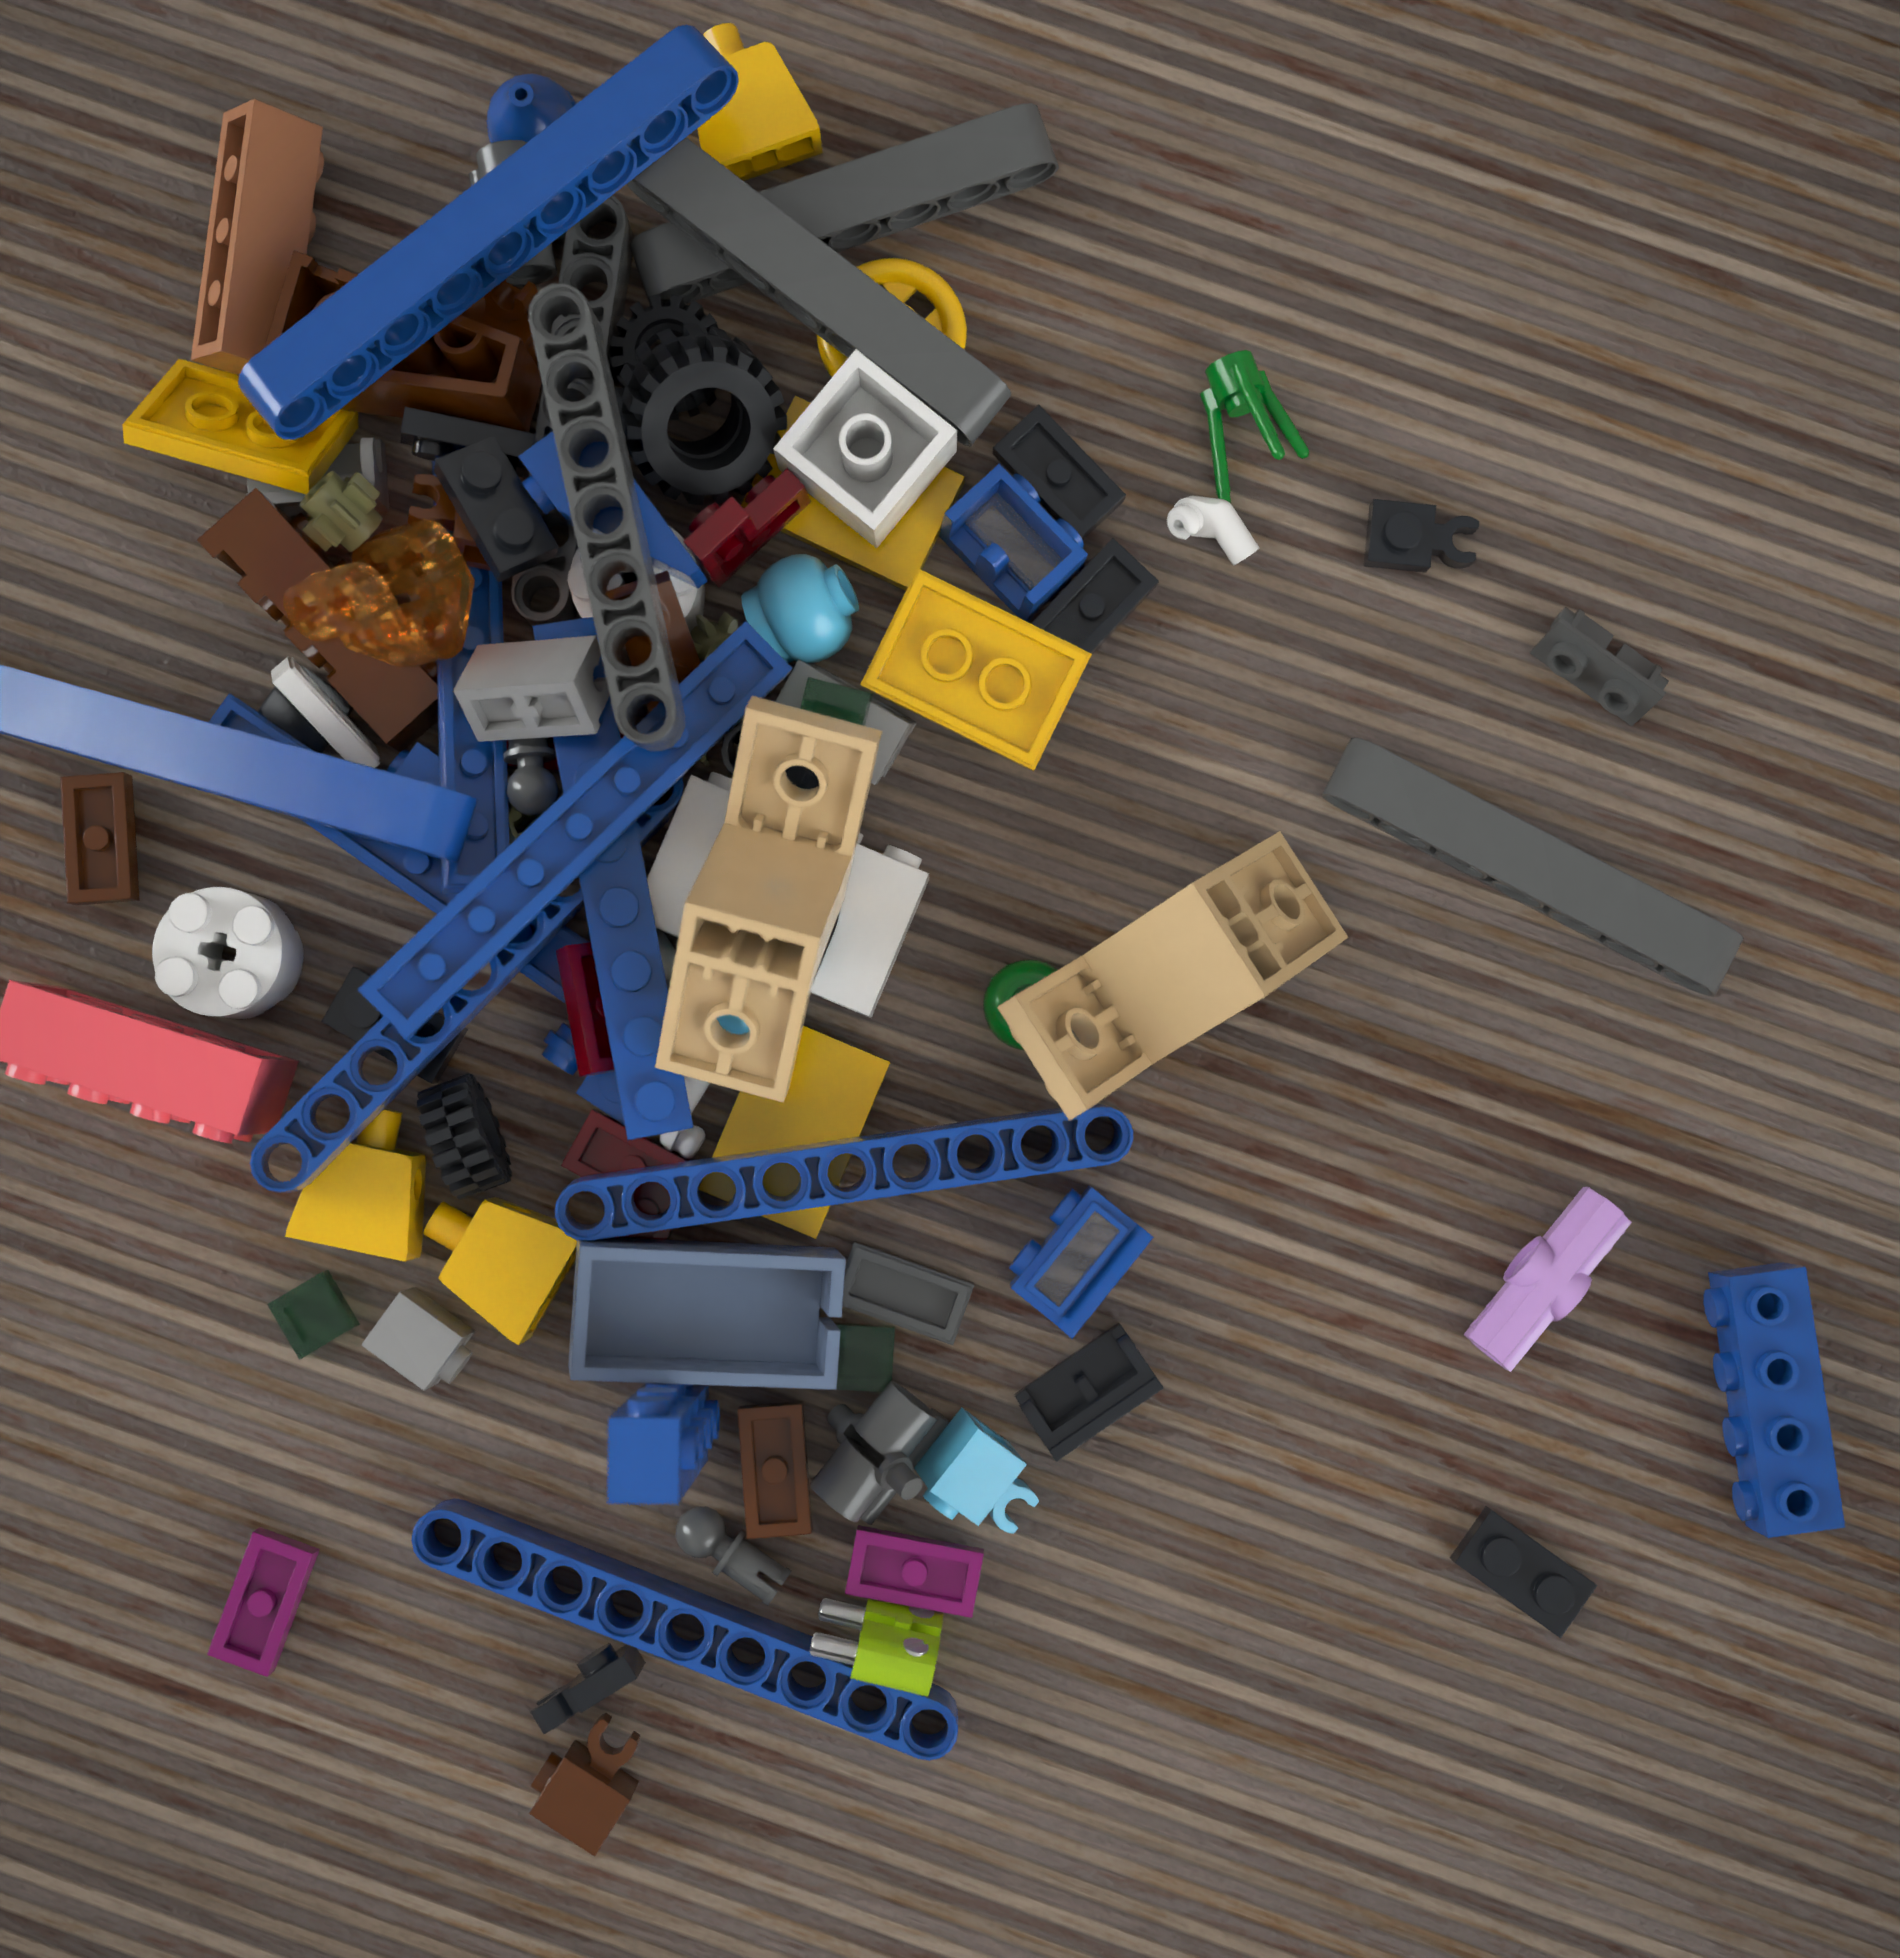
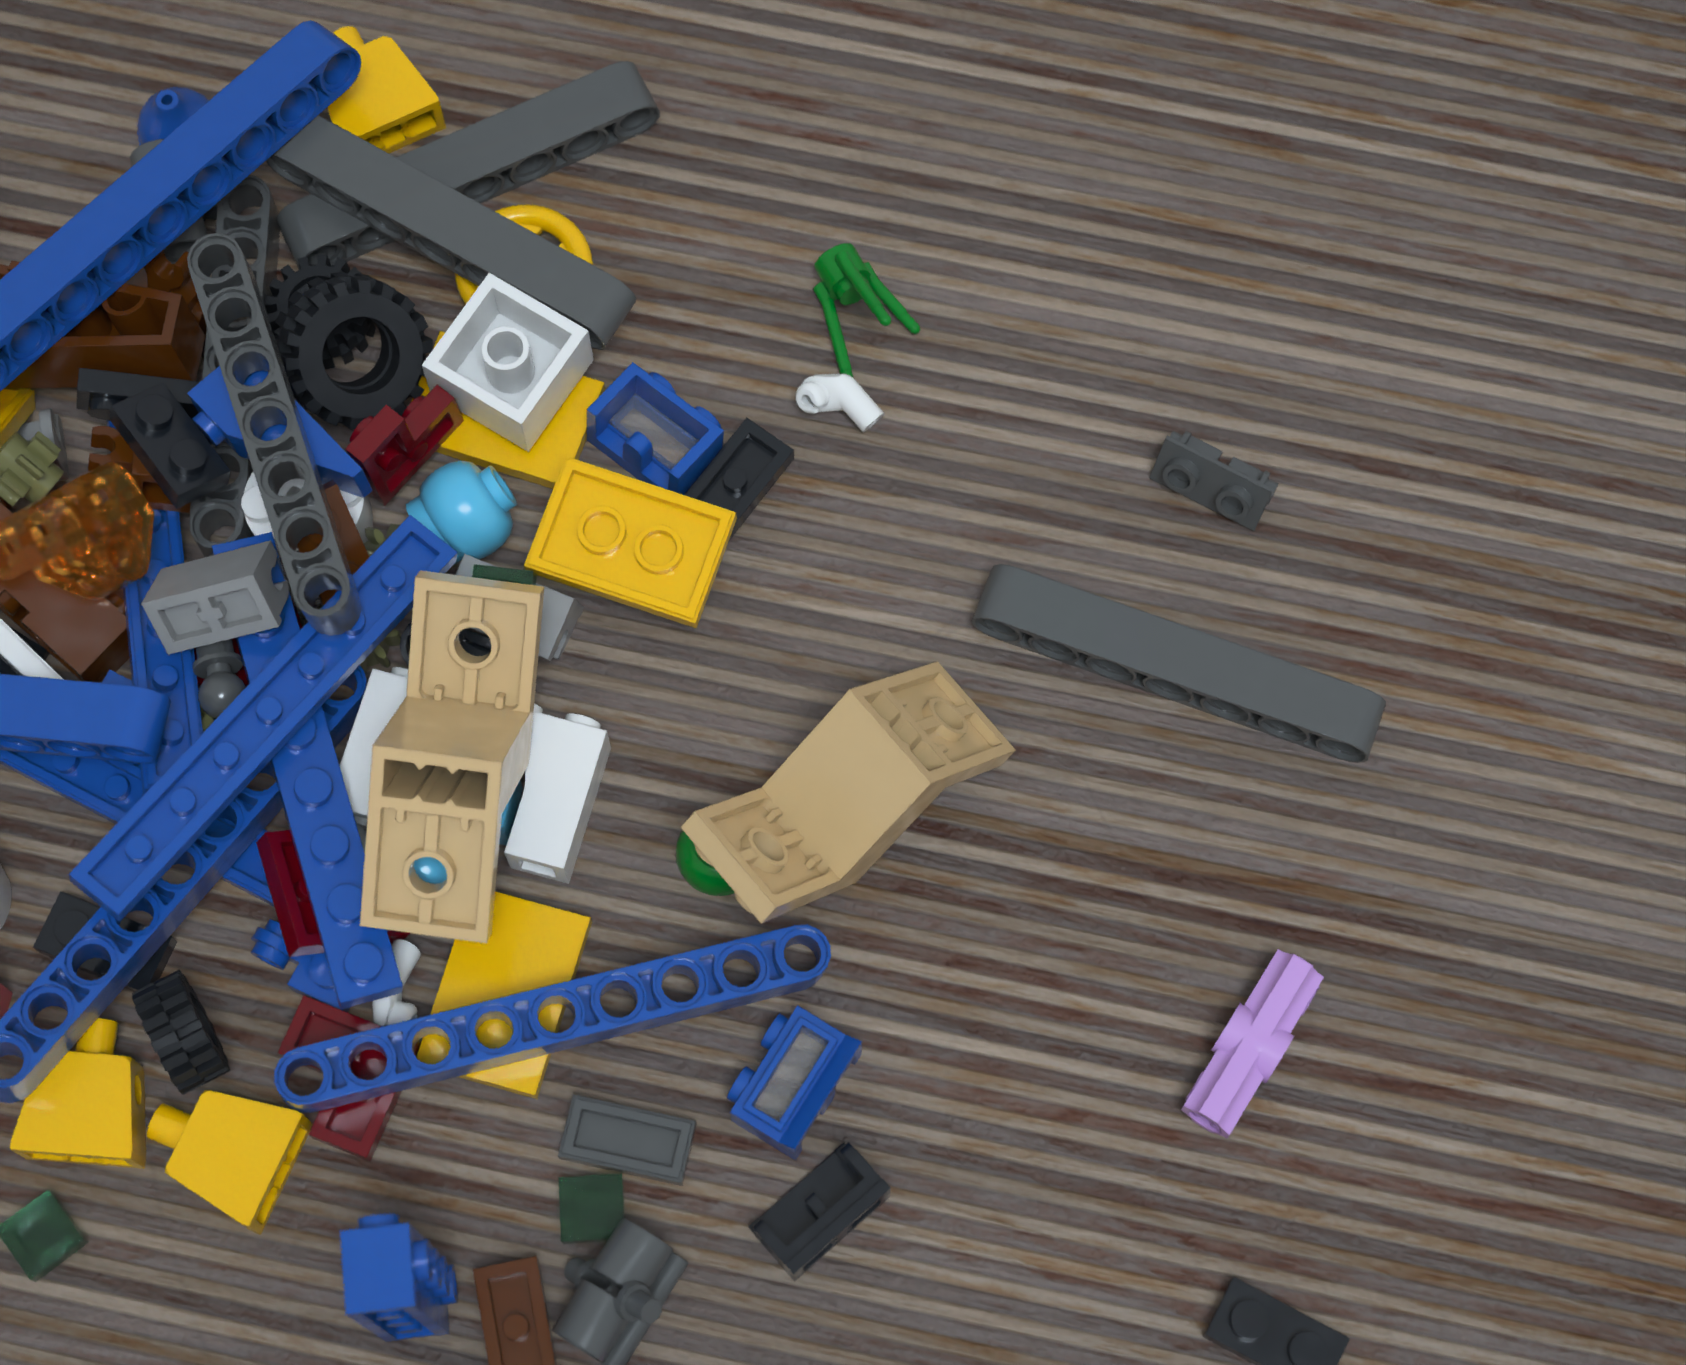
camera: 10 degrees left, 15 degrees down
(420, 1339) = (151, 1241): light grey brick -> none
(706, 1313) = (433, 1163): sand blue piece -> none
(973, 1473) = (714, 1302): medium azure brick -> none
(1060, 472) = (692, 367): black plate -> none
(1407, 537) = (1019, 389): black plate -> none
(1774, 1399) = (1490, 1130): blue brick -> none

